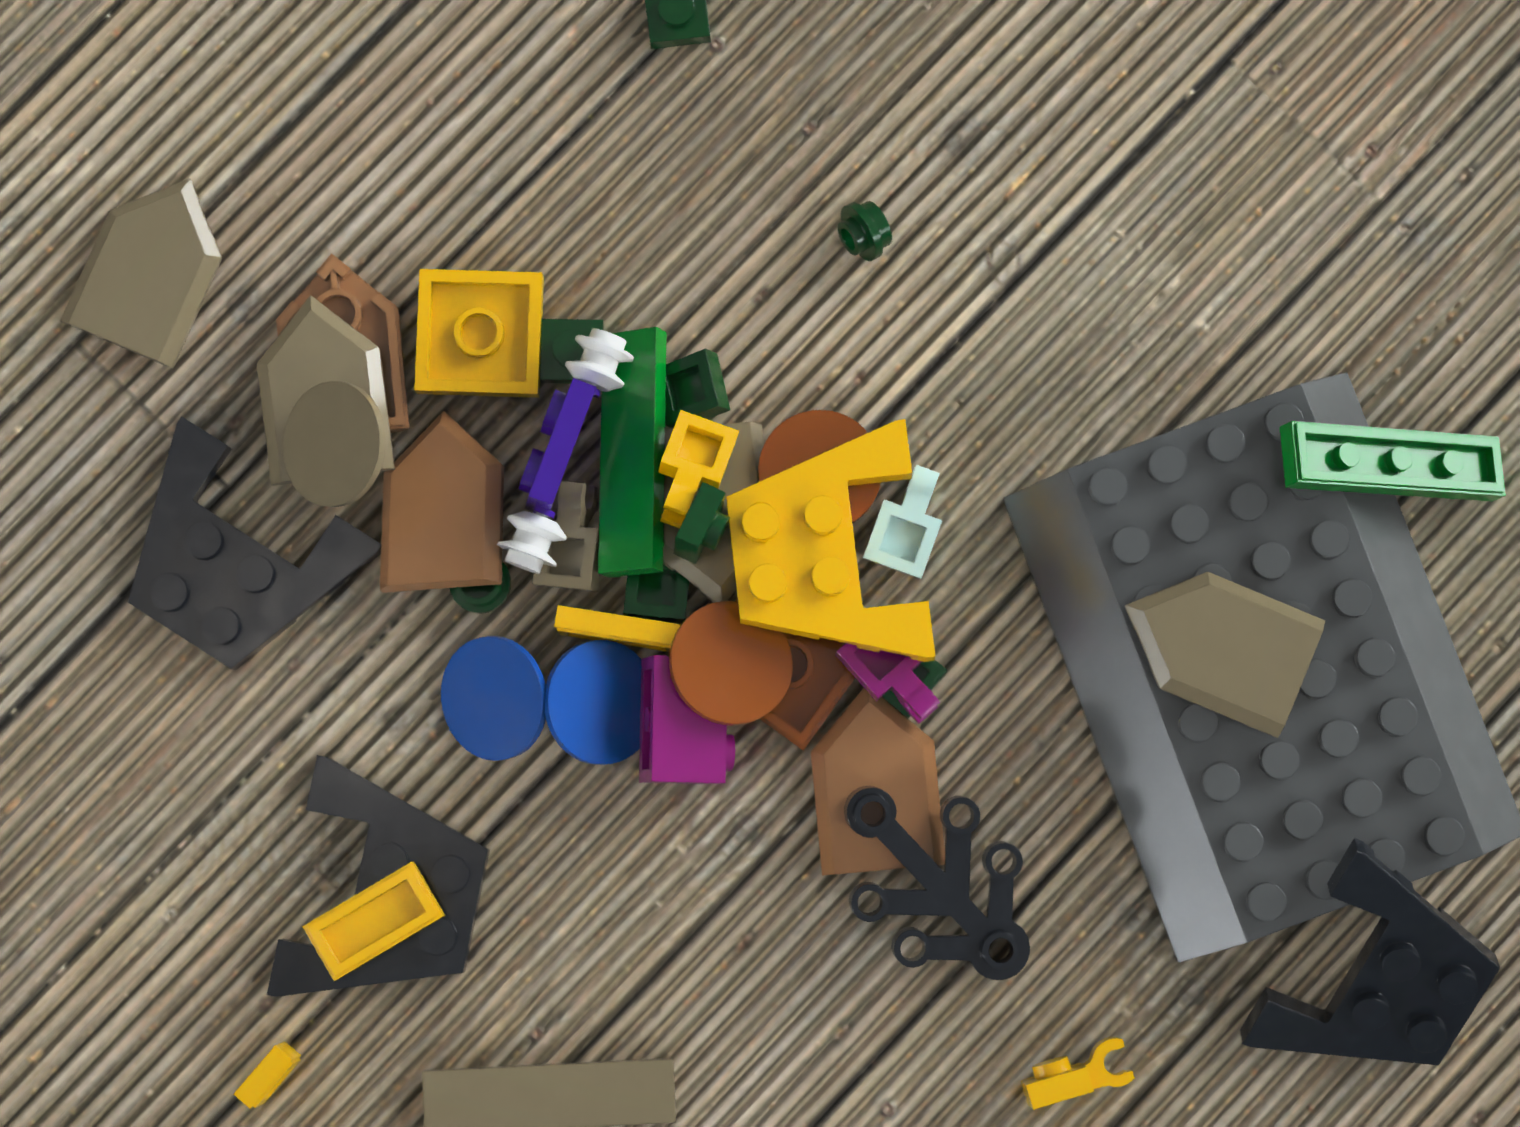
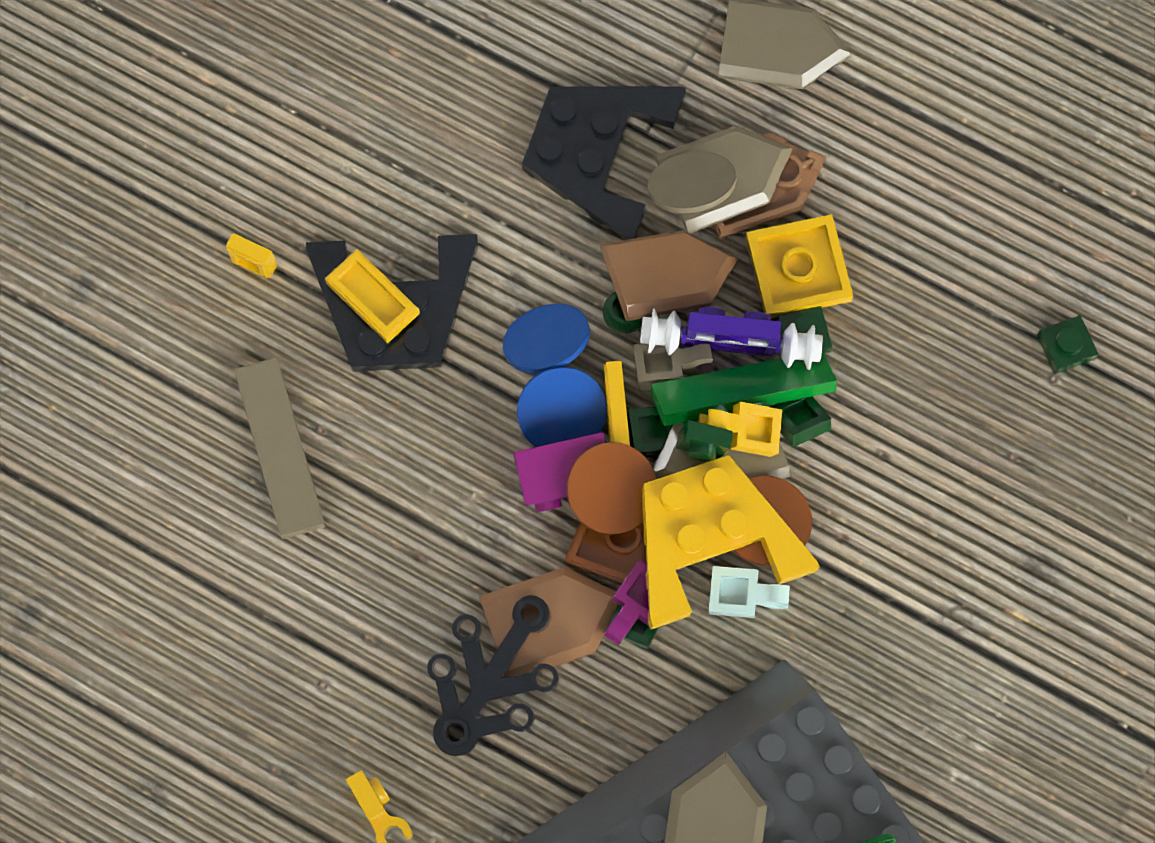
camera: 75 degrees right, 10 degrees down
(864, 230) = (949, 510): dark green plate -> none

